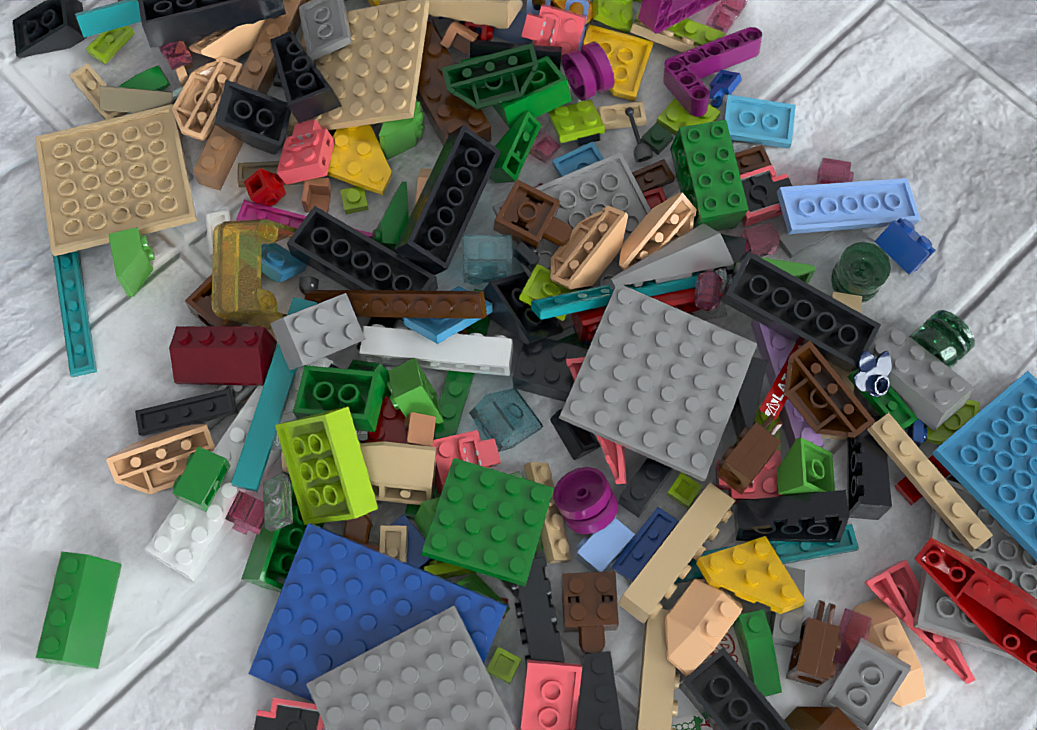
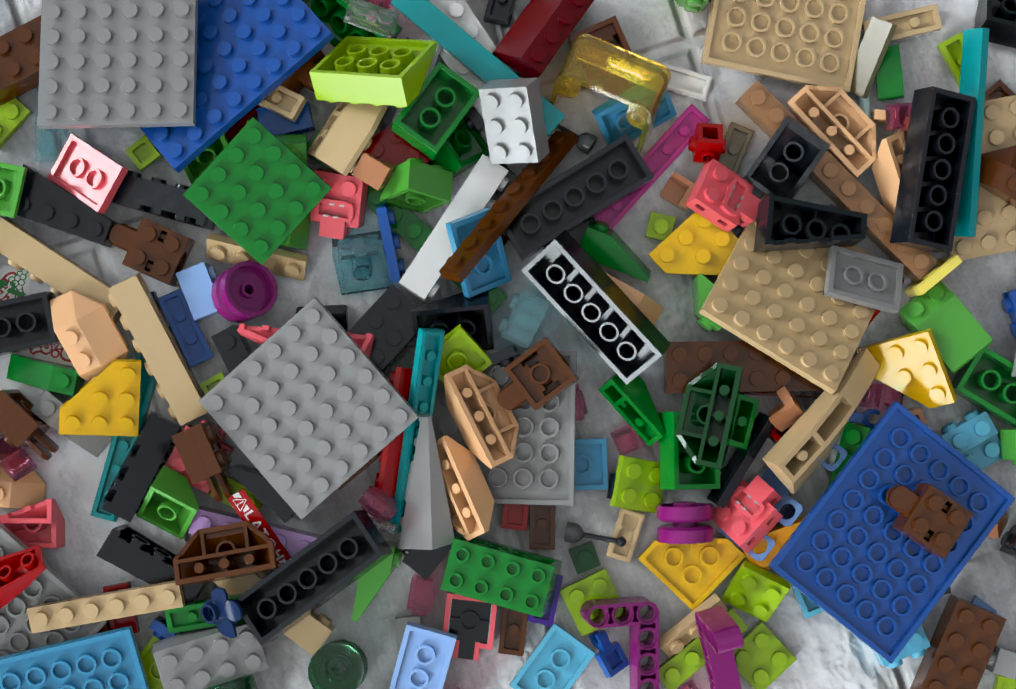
camera: 120 degrees right, 20 degrees up
(458, 409) = (390, 242): none -> blue plate

